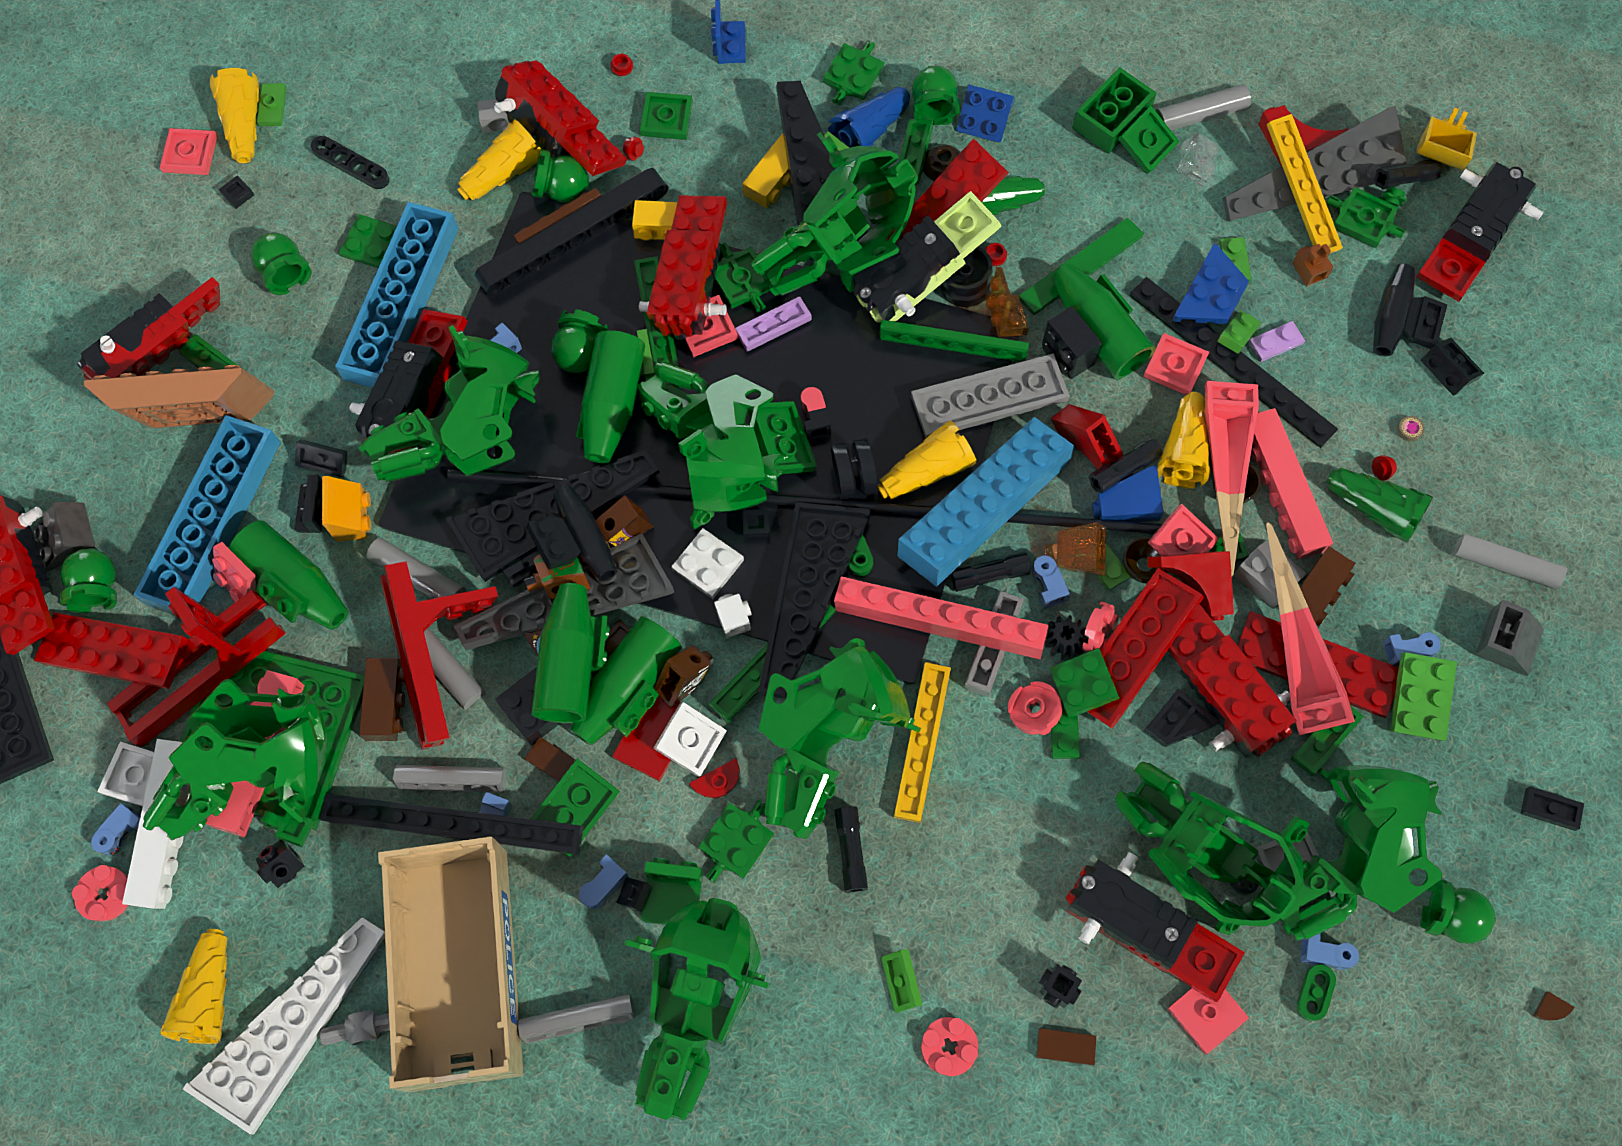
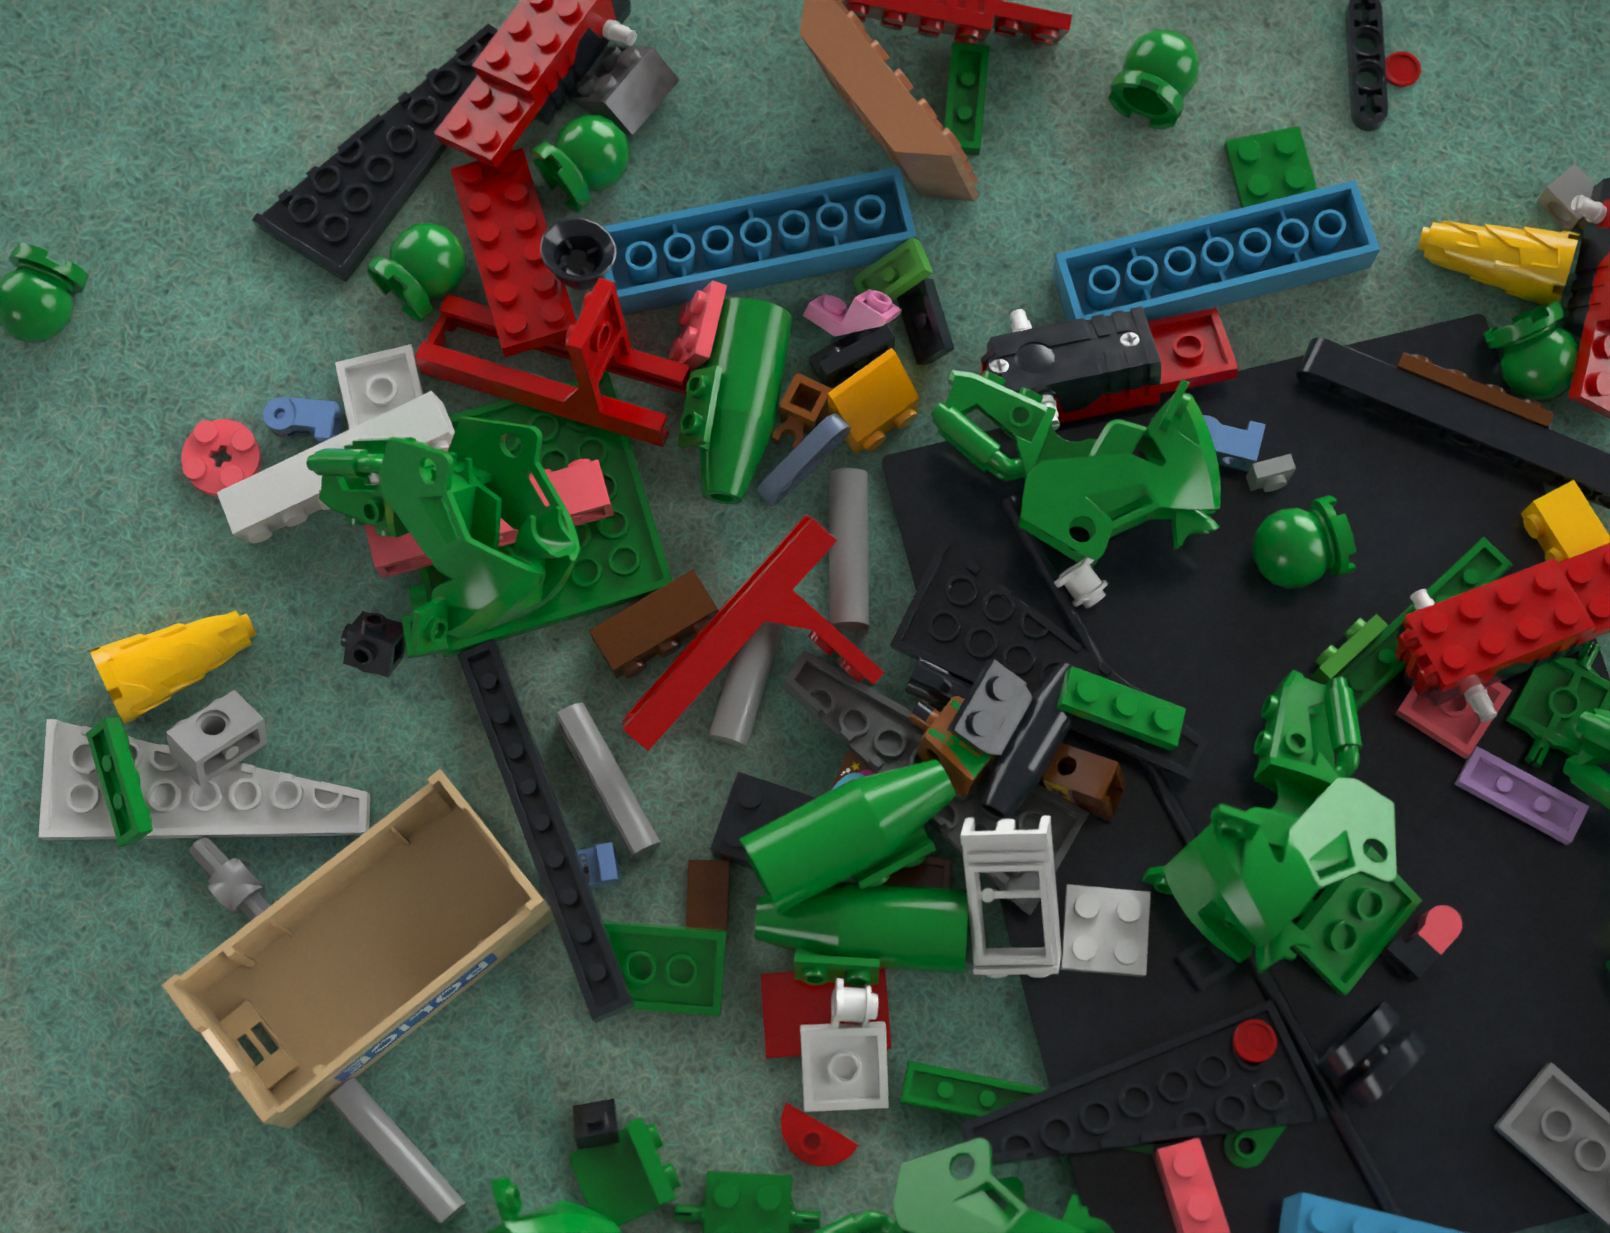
camera: 60 degrees right, 5 degrees up
(80, 709) = (421, 266): none -> green tile
(141, 609) = (578, 252): none -> black hat
(252, 1061) = (119, 781): none -> green plate
(267, 987) = (216, 737): none -> light grey brick
(282, 457) = (896, 270): none -> bright green plate
(292, 482) = (866, 312): none -> bright pink slope
(321, 548) = (801, 409): none -> dark orange brick
(349, 563) = (804, 459): none -> sand blue beam
(367, 148) = (1402, 69): none -> red piece
(520, 462) = (1082, 583): none -> white brick
(529, 337) = (1271, 473): none -> light grey plate
(596, 892) = (586, 1076): medium blue leg -> none
(598, 478) = (1121, 708): none -> green plate
(609, 393) = (1255, 640): green piece -> none
(631, 578) = (1010, 852): none -> white door
(660, 711) = (852, 1004): none -> white brick
(691, 667) = (926, 1001): reddish brown torso -> none
(733, 614) = (1053, 1014): white brick -> none
(811, 522) = (1254, 1041): none -> red piece
(935, 458) = (1471, 1165): yellow cone -> none

